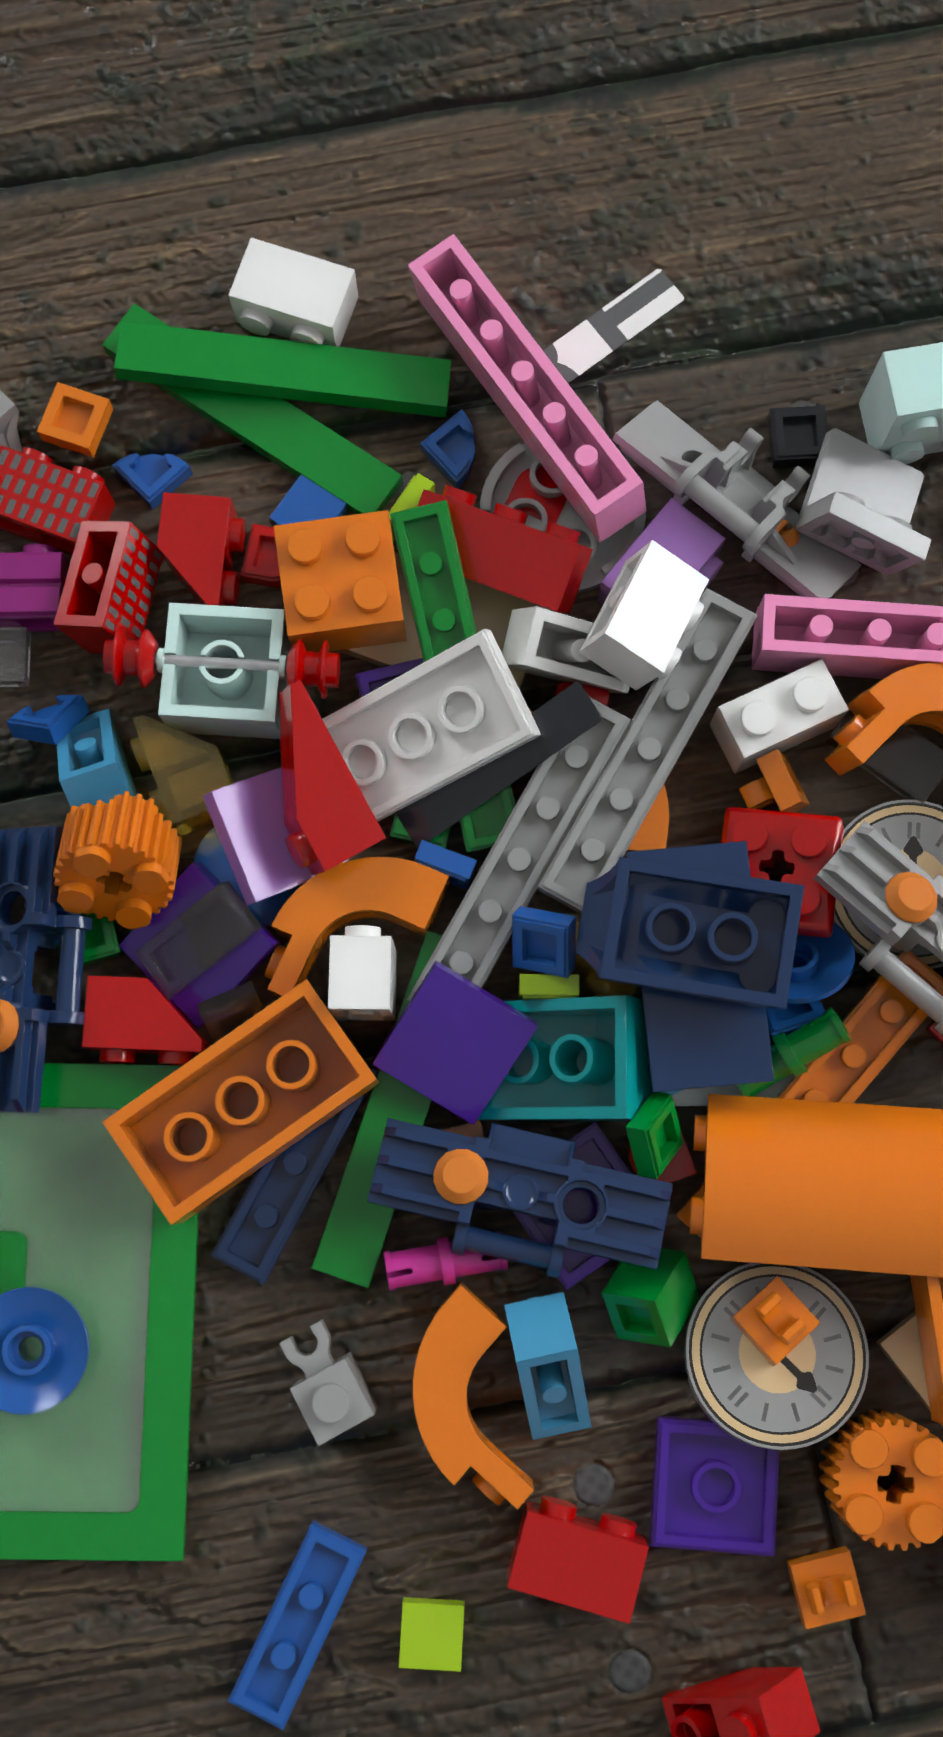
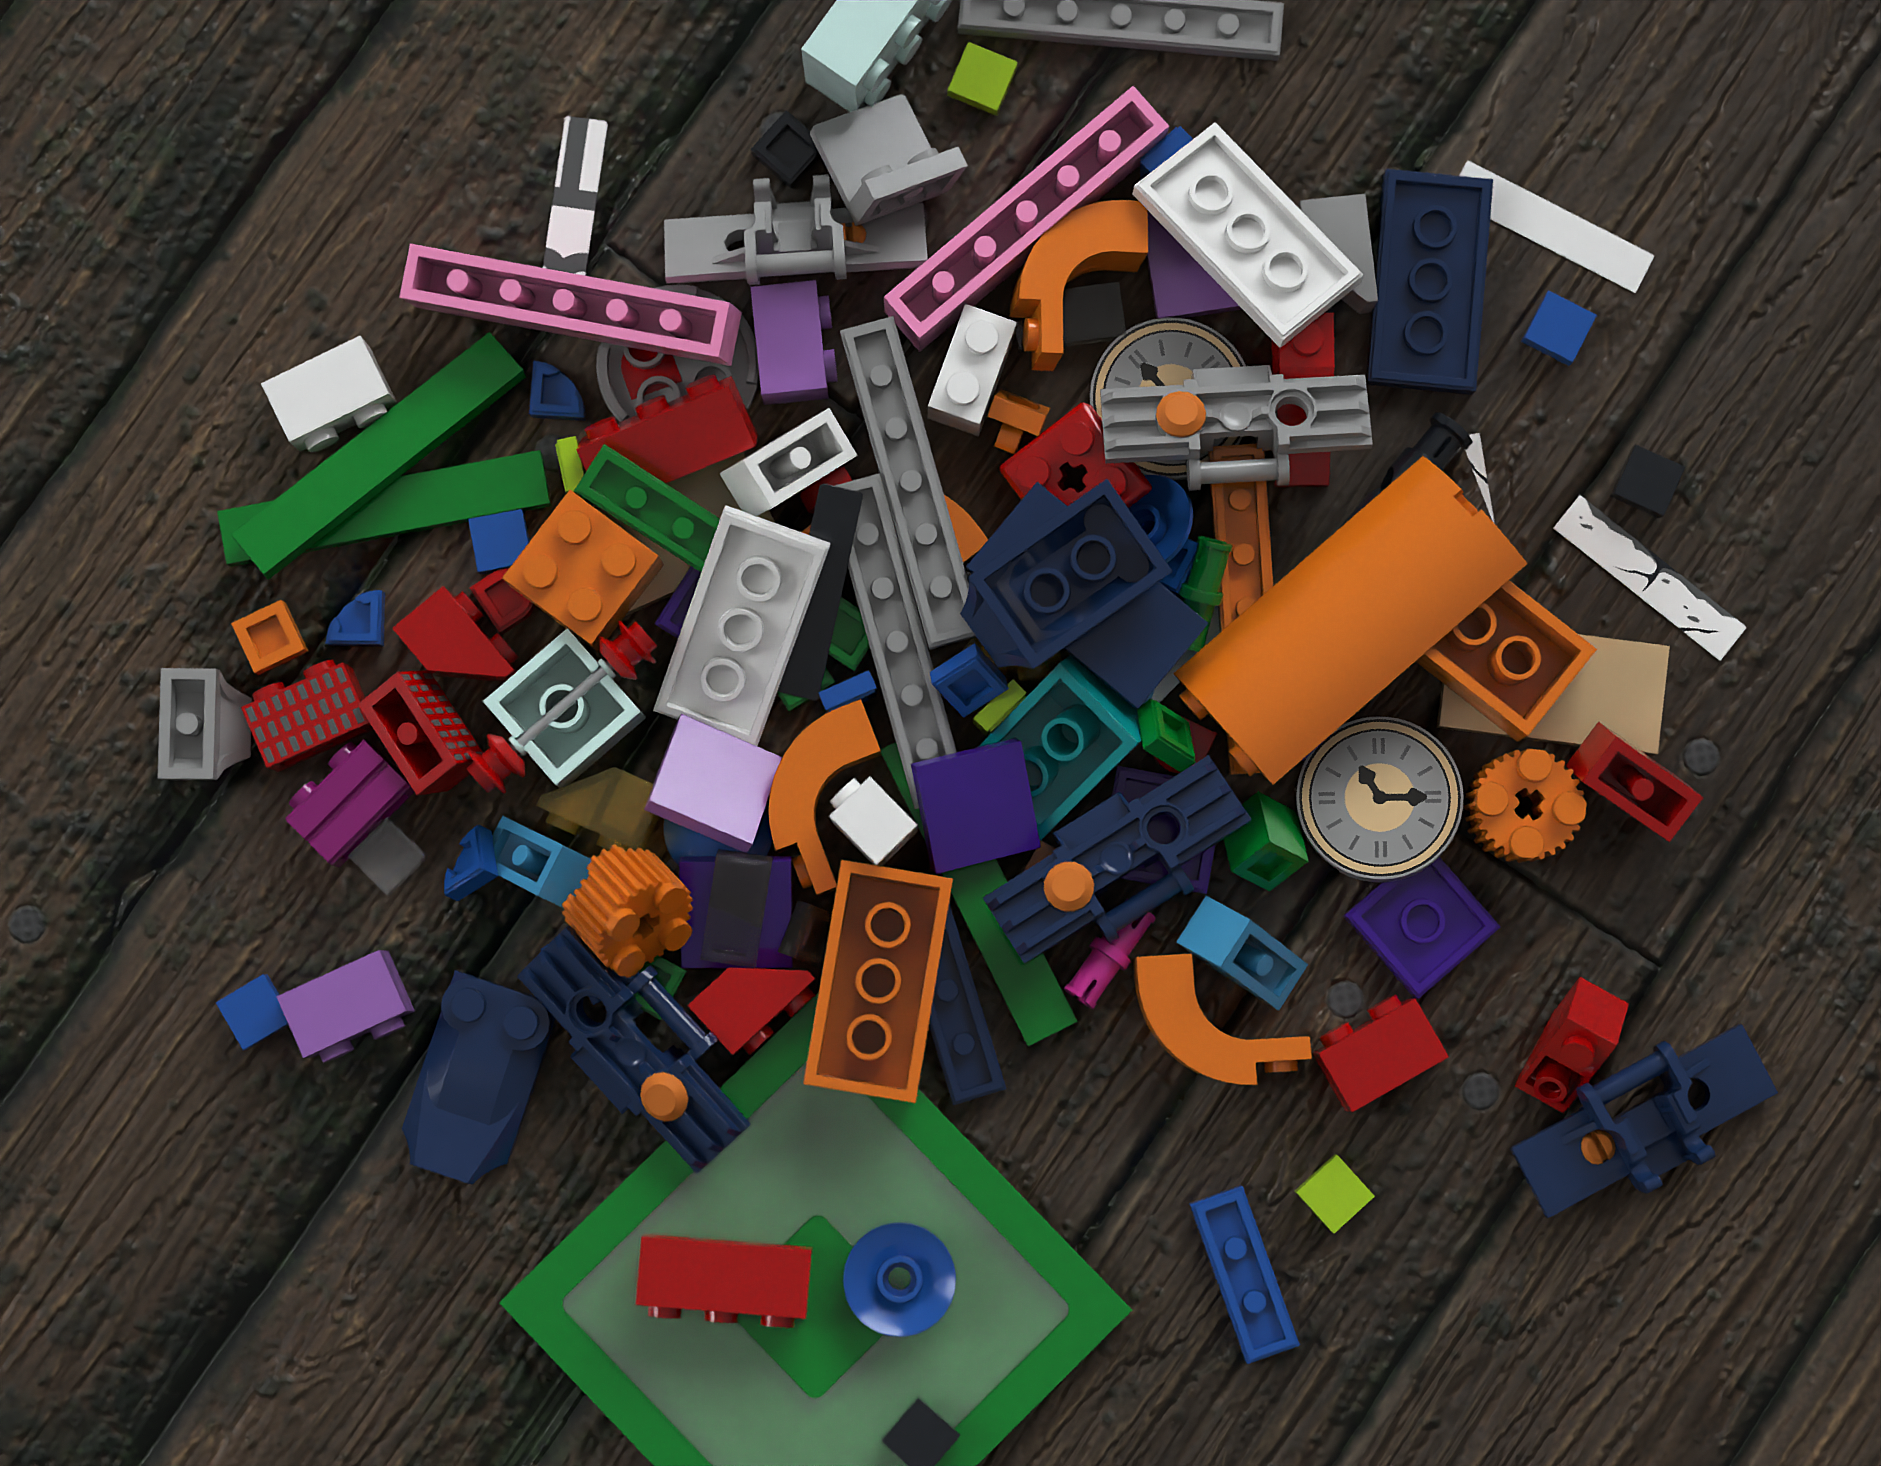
camera: 50 degrees left, 5 degrees up
(320, 796) = (719, 729): red slope -> none
(333, 1391) = (1118, 1108): light grey brick -> none
(646, 616) = (821, 393): white brick -> none
(775, 1321) = (1358, 778): orange tile -> none
(826, 1587) = (1551, 914): orange tile -> none

